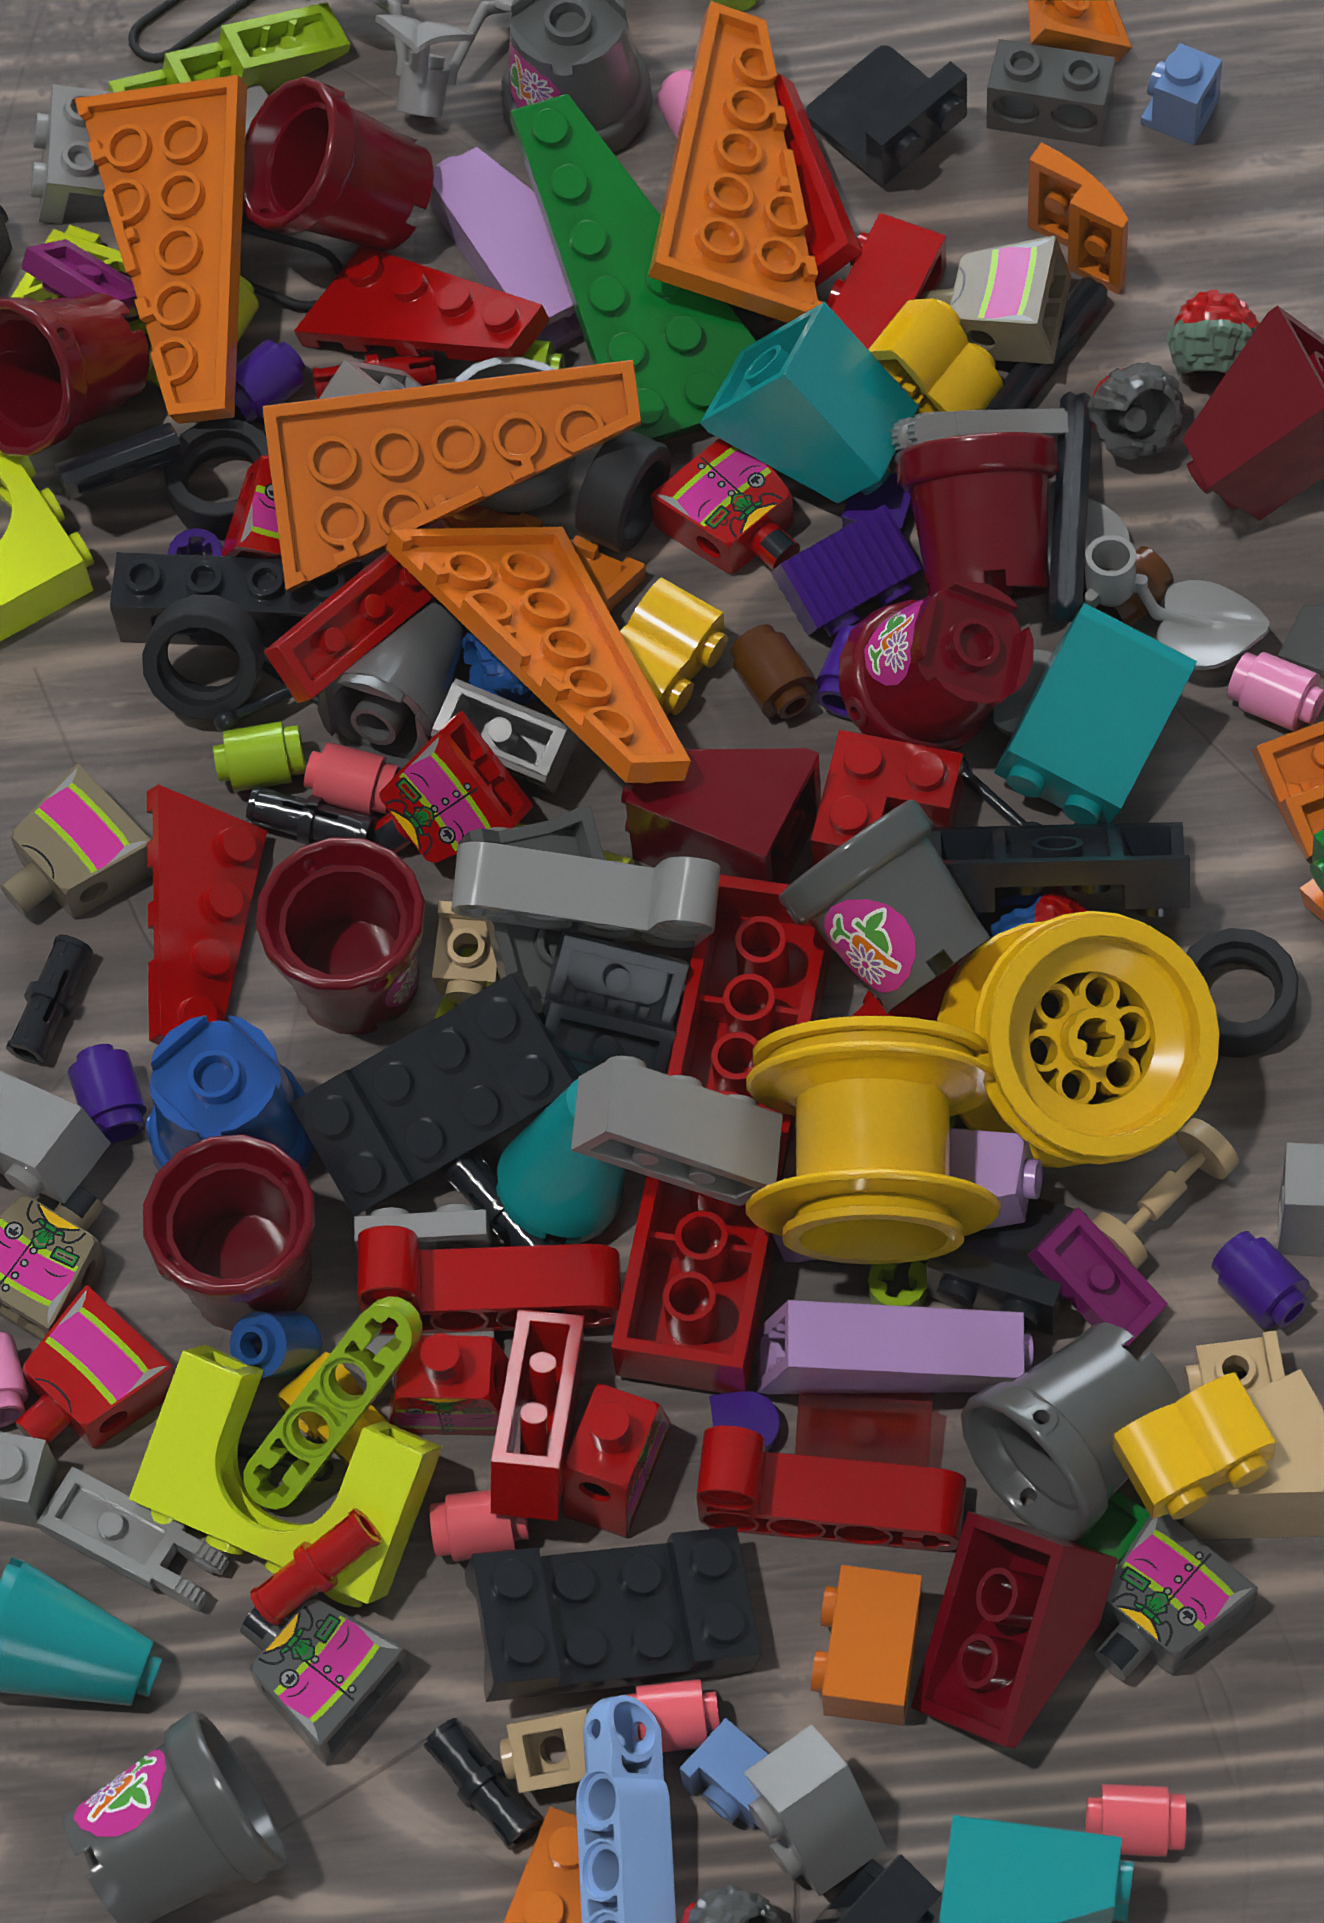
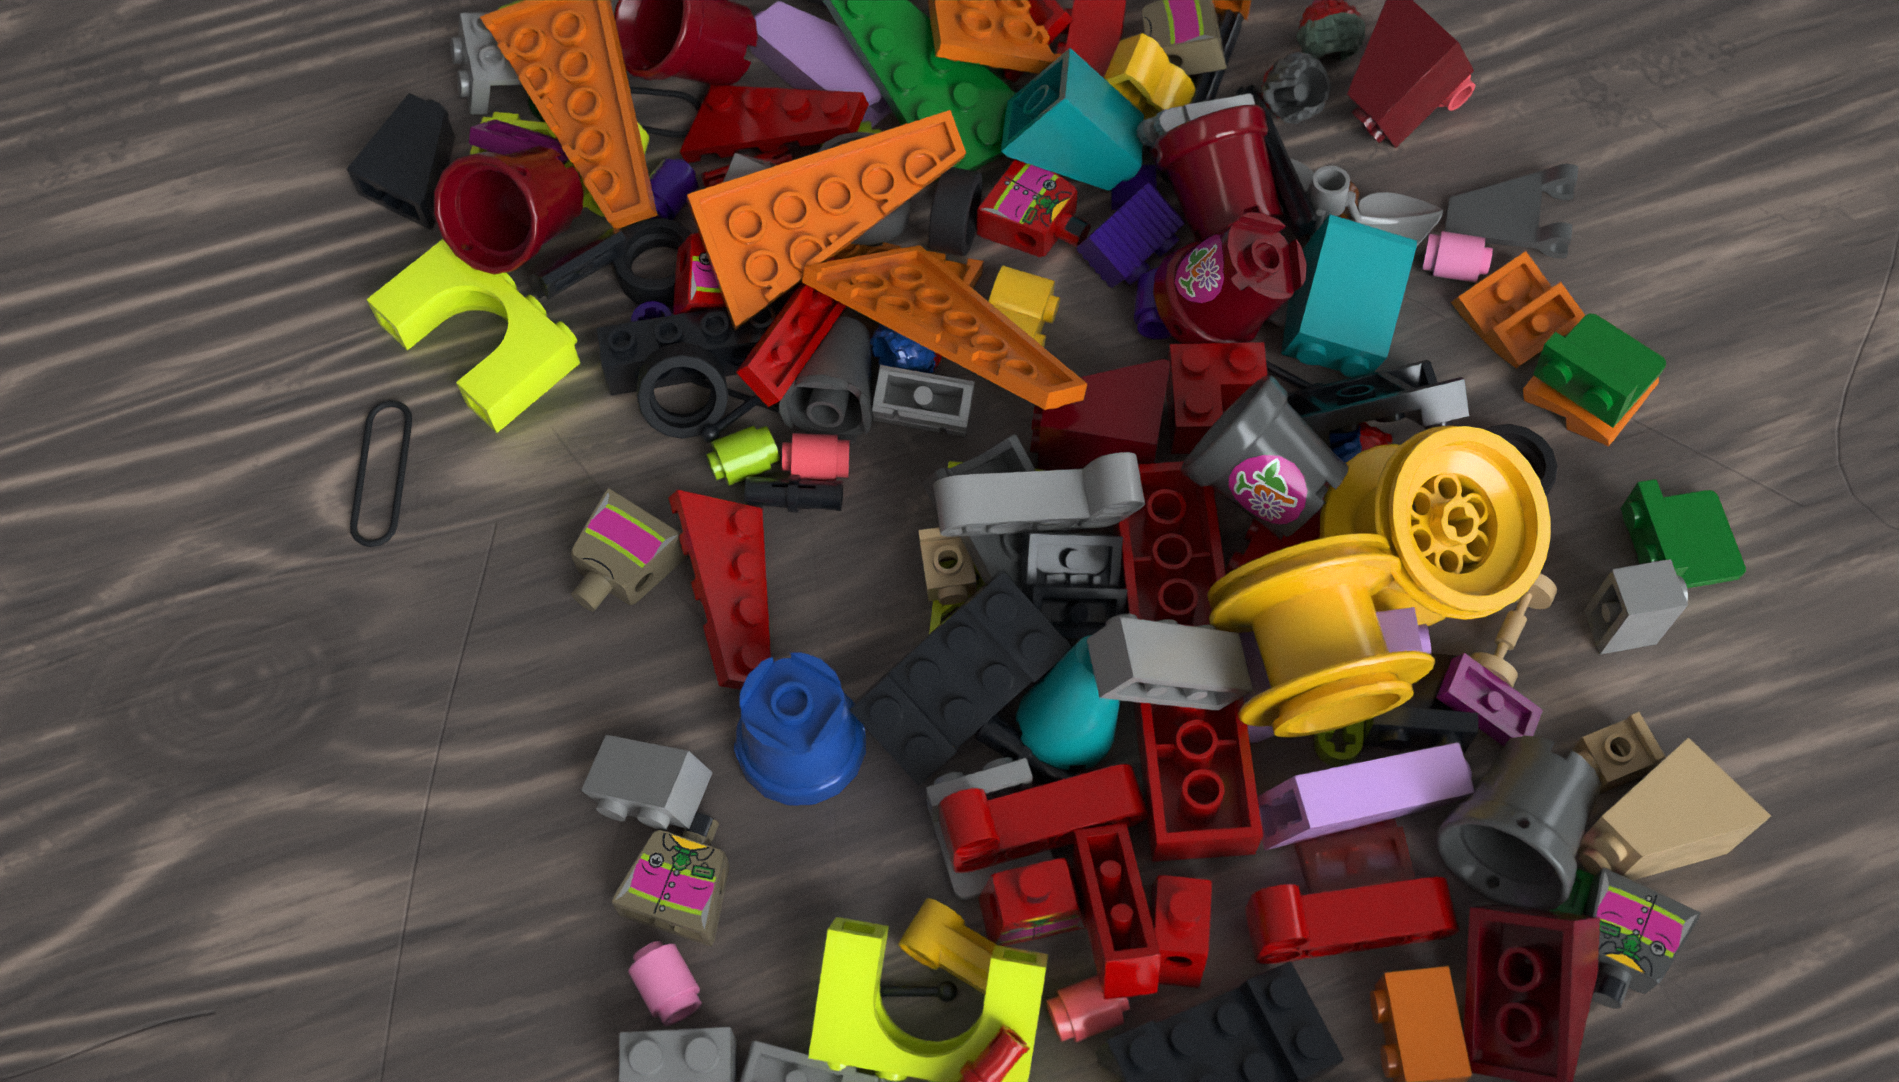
camera: 20 degrees left, 0 degrees up
(49, 999) = (631, 671): black pin -> none
(92, 1375) = (748, 961): red torso -> none
(108, 1091) = (697, 729): dark purple brick -> none
(232, 1227) = (836, 818): dark red piece -> none
(276, 1342) = (888, 900): blue brick -> none
(332, 1403) = (956, 942): lime beam -> none
(344, 931) = (855, 567): dark red piece -> none
(447, 792) = (897, 452): torso -> none
(748, 1411) = (1259, 871): dark purple tile -> none
(773, 672) = (1100, 316): reddish brown brick -> none
(1194, 1447) = (1645, 818): yellow brick -> none
(1261, 1280) = (1604, 676): dark purple brick -> none

